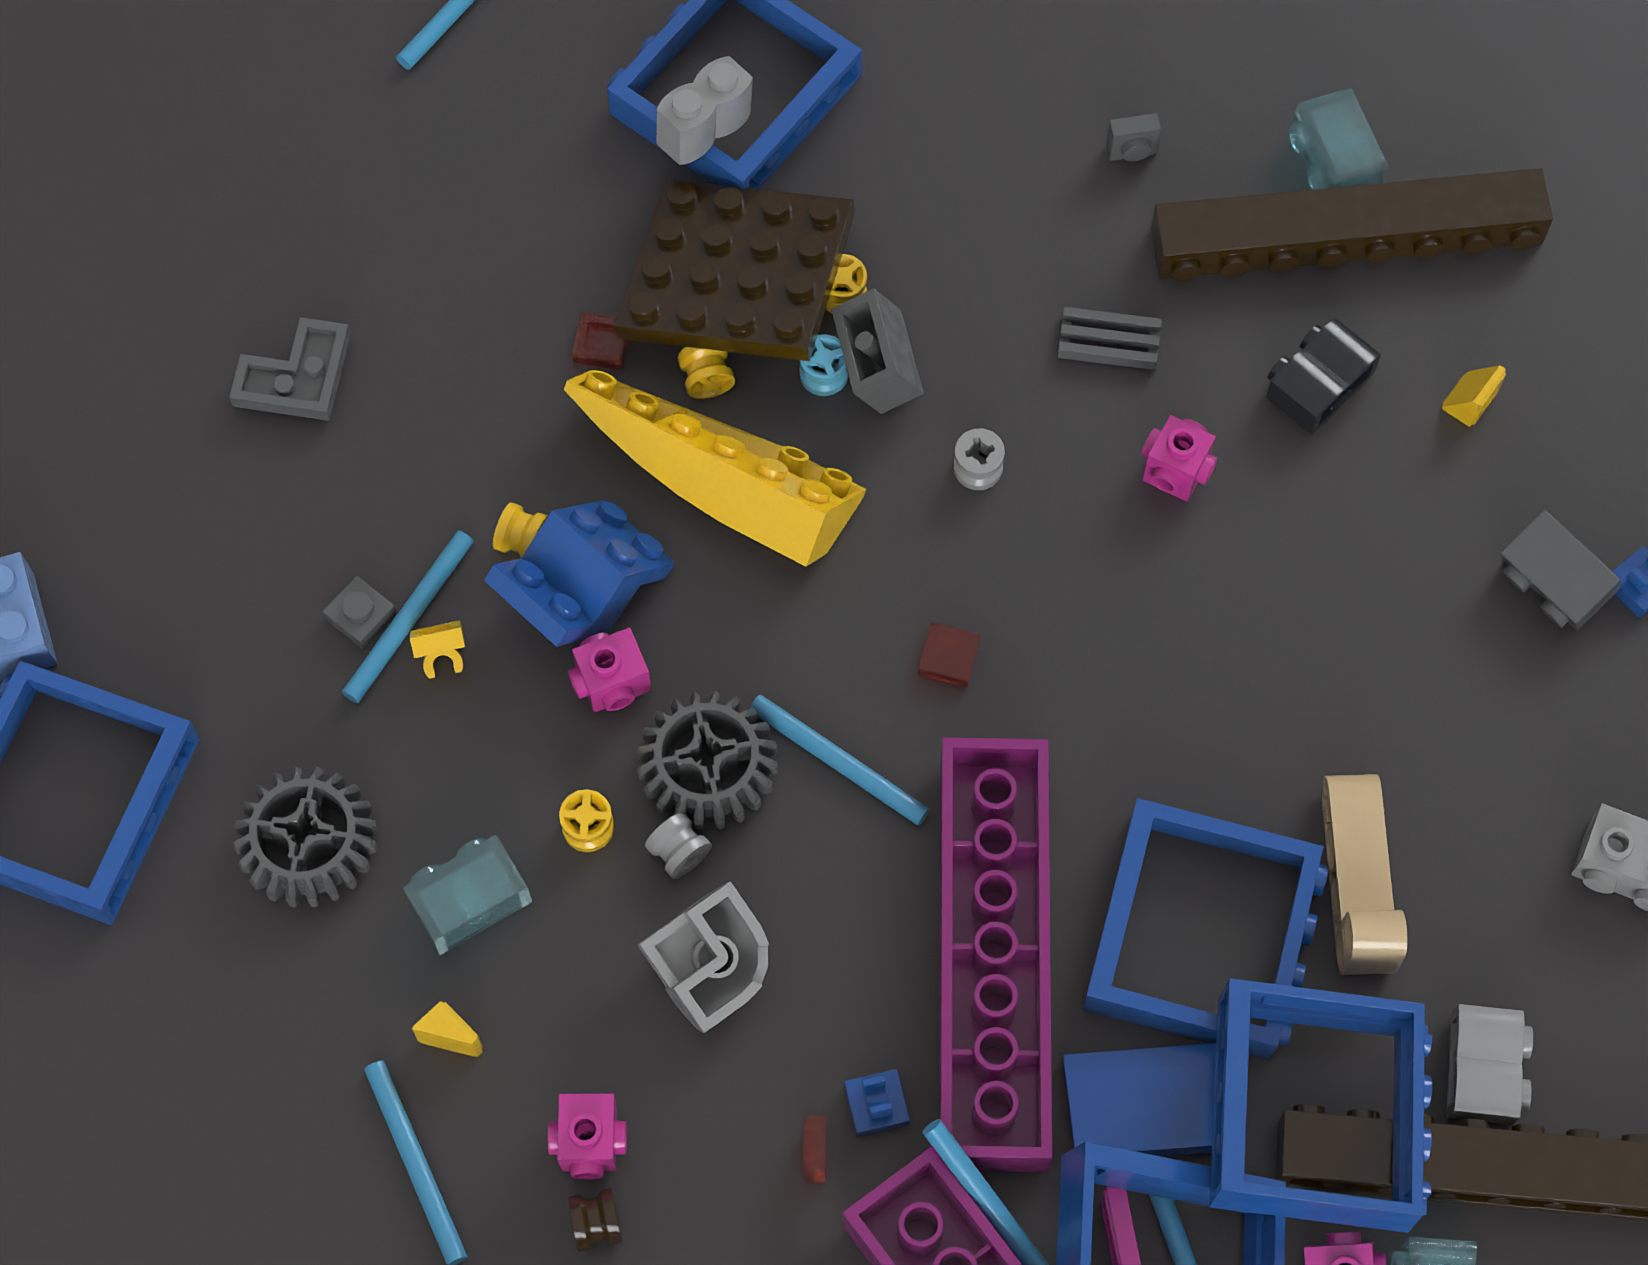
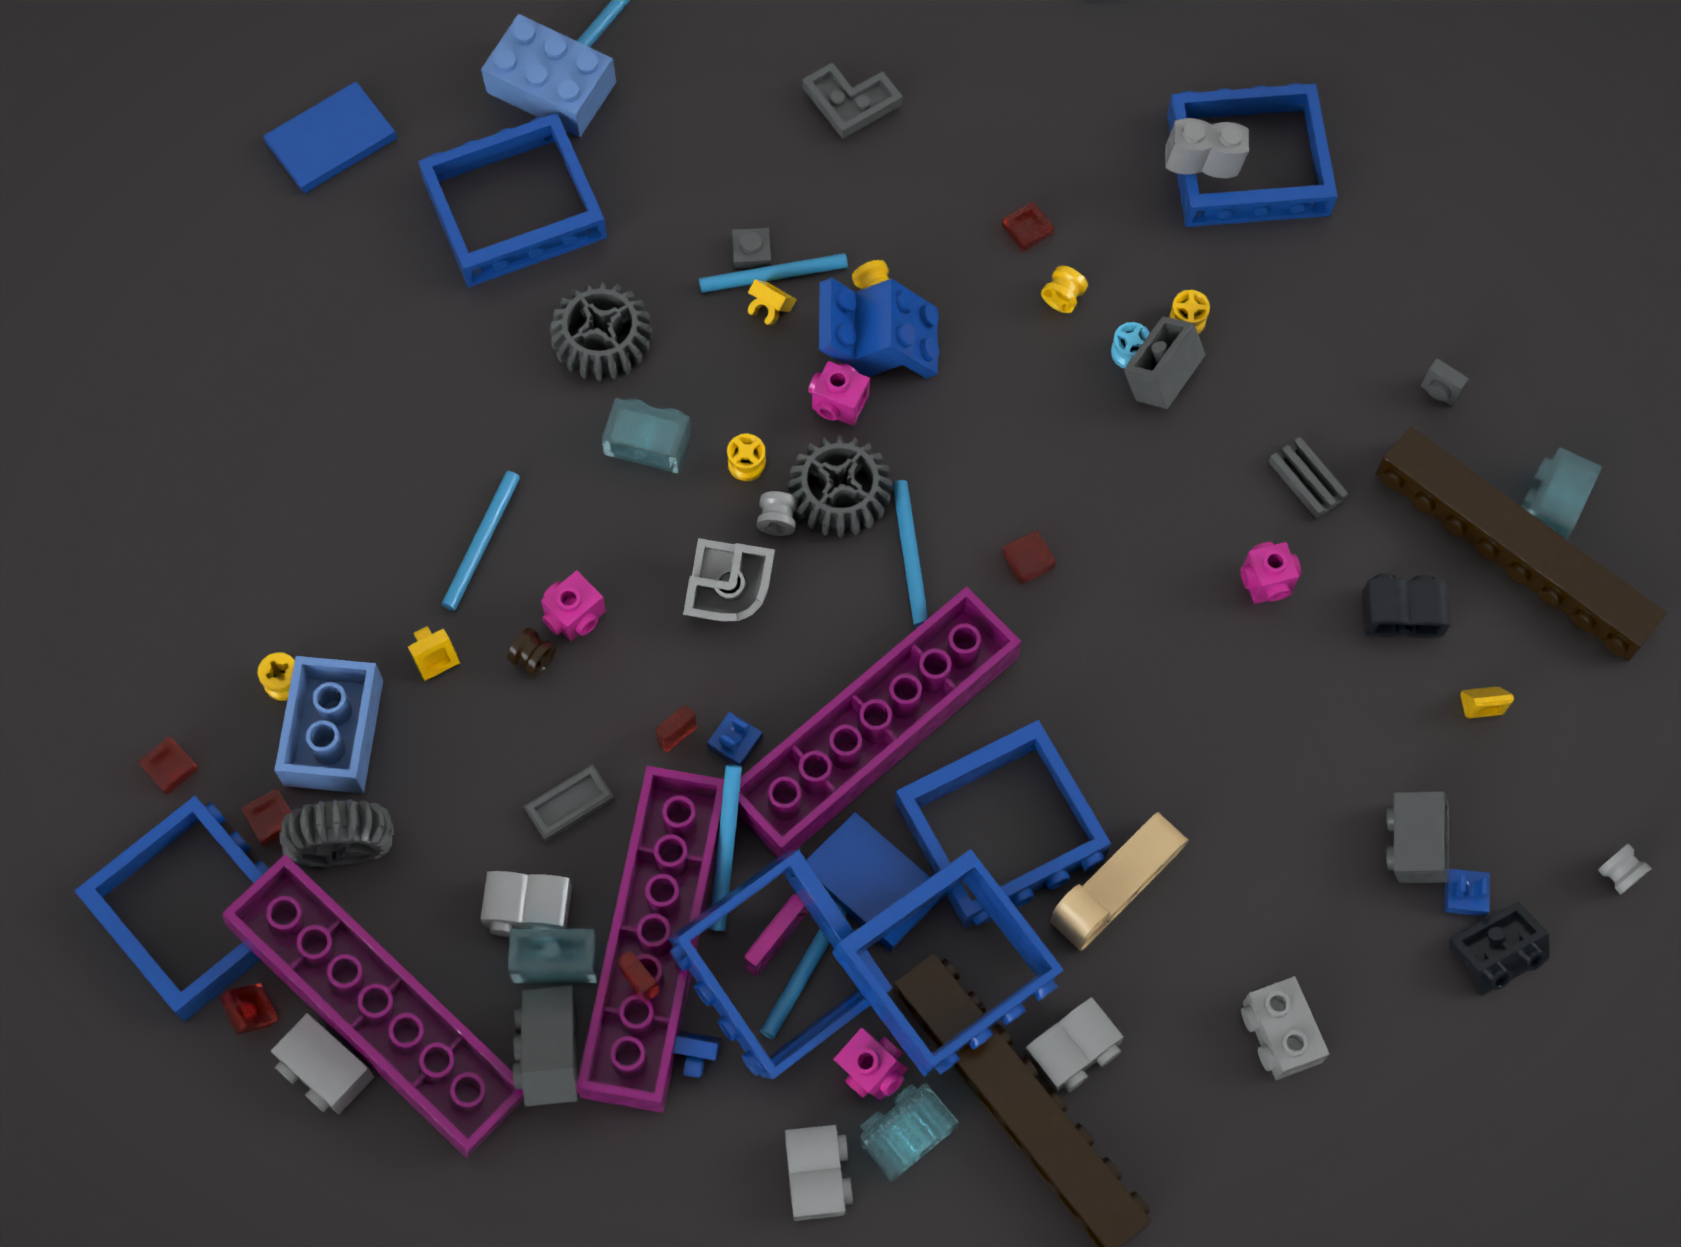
camera: 45 degrees right, 0 degrees up
(447, 1031) = (564, 490): yellow slope -> none
(724, 471) = (1013, 349): yellow wedge -> none
(736, 270) = (1136, 250): dark brown plate -> none
(971, 468) = (1159, 480): light grey wheel -> none

